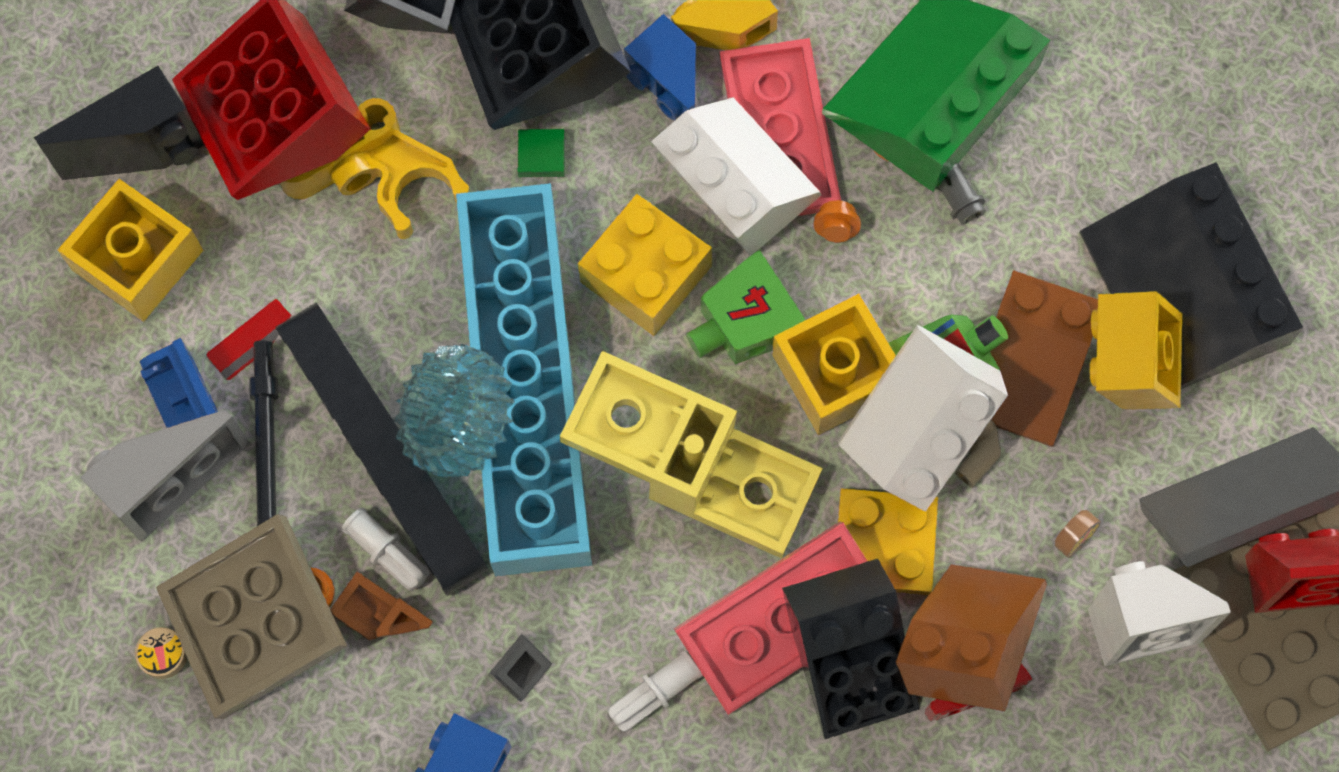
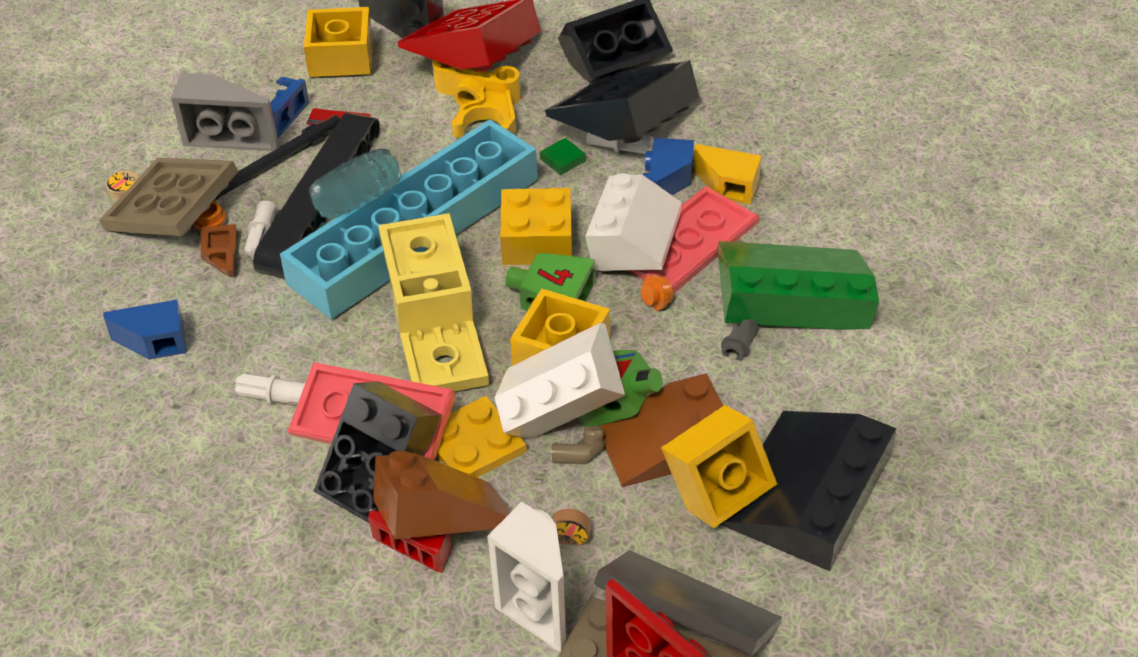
camera: 50 degrees right, 25 degrees down
(520, 668) = (236, 322): dark grey slope -> none

